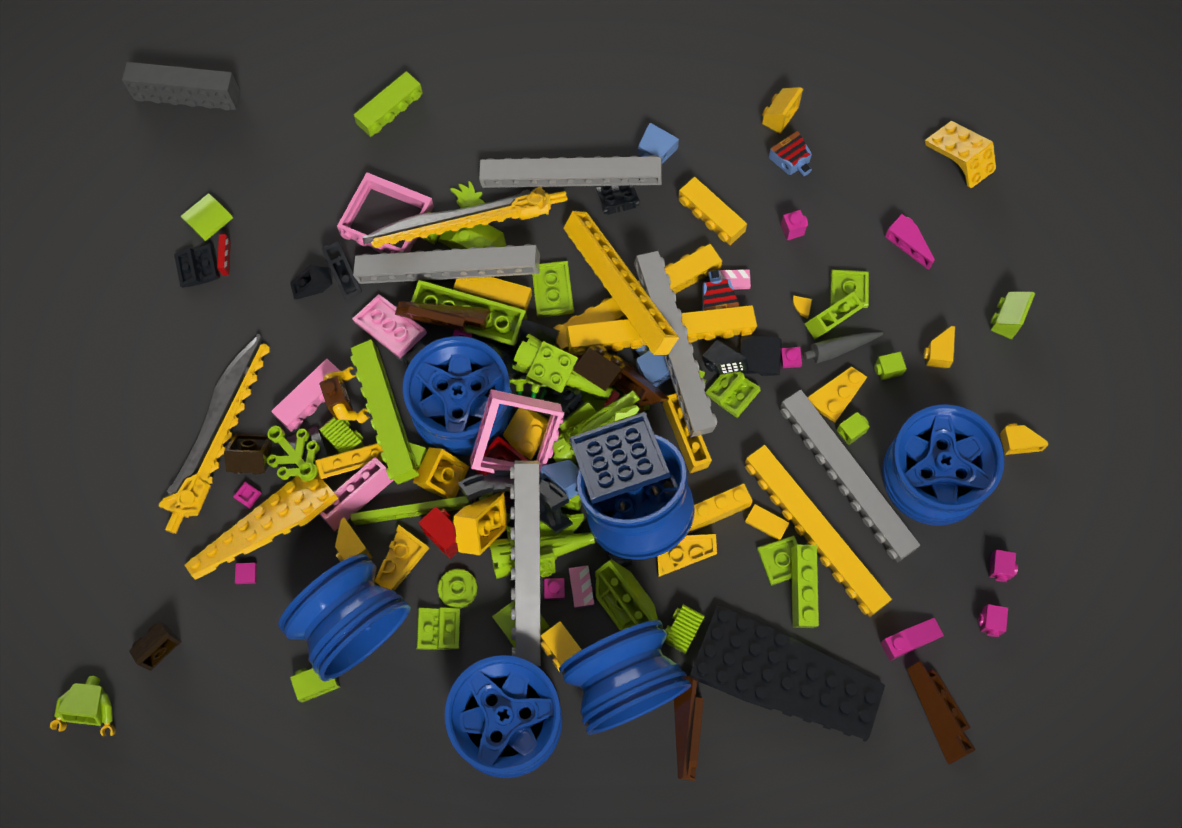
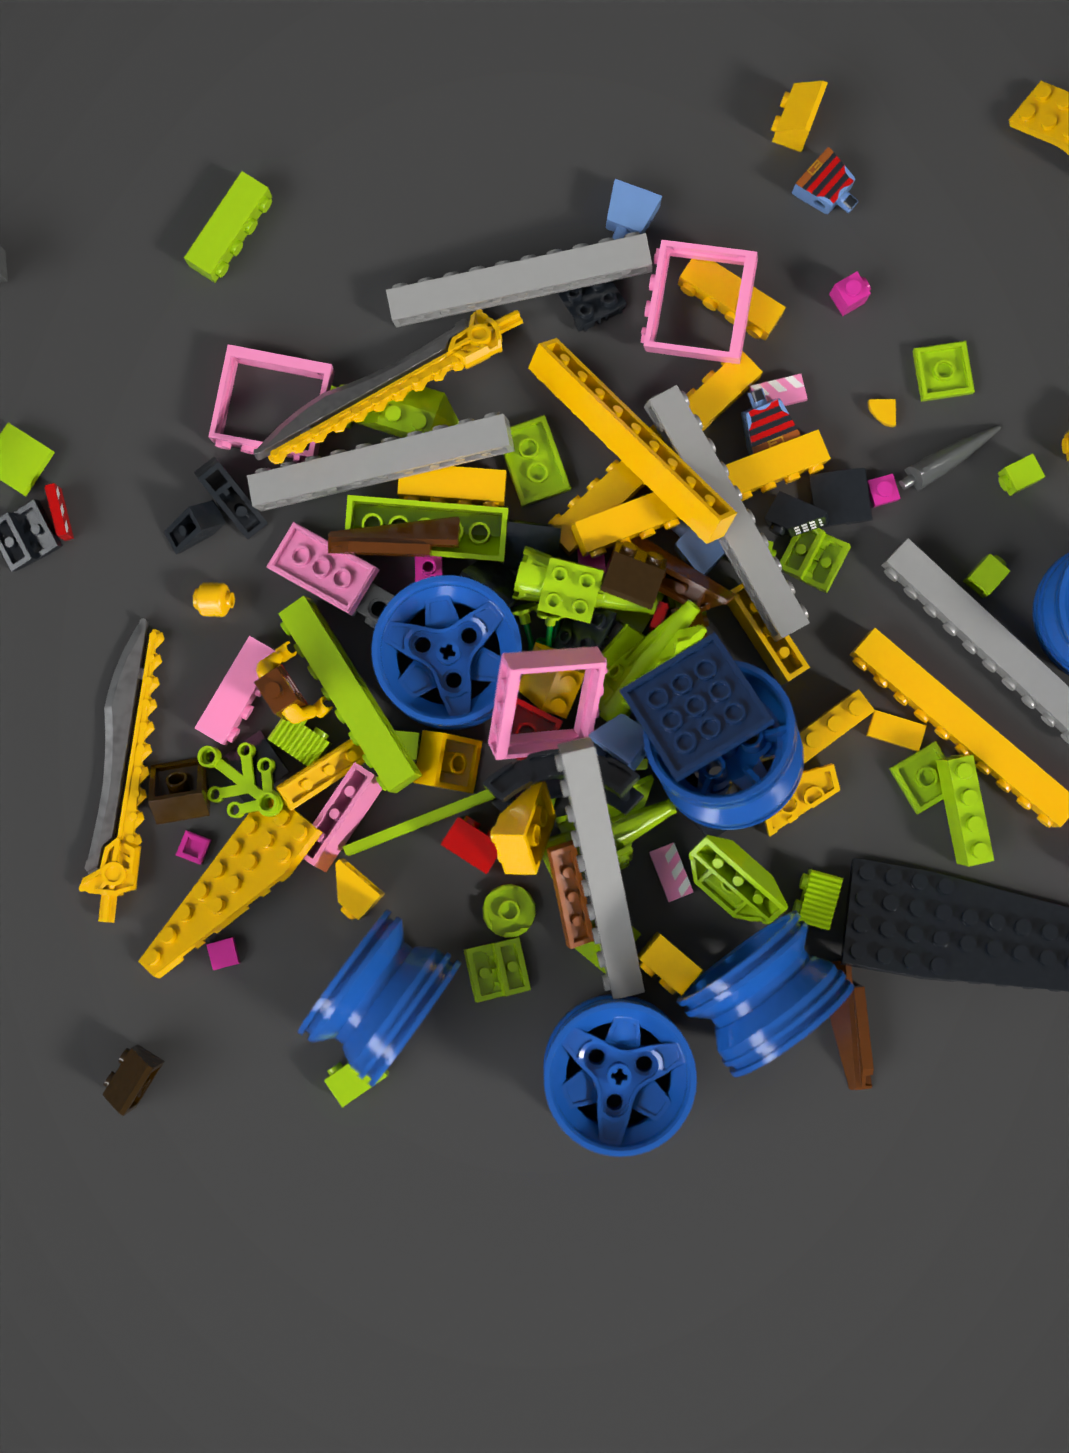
camera: 15 degrees left, 15 degrees up
(84, 705) = (67, 1175): lime torso -> none
(309, 331) = (213, 599): none -> yellow head
(401, 559) = (424, 889): yellow wing -> none
(468, 196) = (380, 349): lime piece -> none
(501, 579) = (570, 894): none -> dark orange plate
(554, 589) = (636, 882): dark pink plate -> none
(675, 170) = (657, 285): none -> bright pink window
(834, 315) = (931, 418): lime slope -> none
(837, 394) = (956, 529): yellow wing -> none
(907, 237) = (1015, 280): dark pink slope -> none

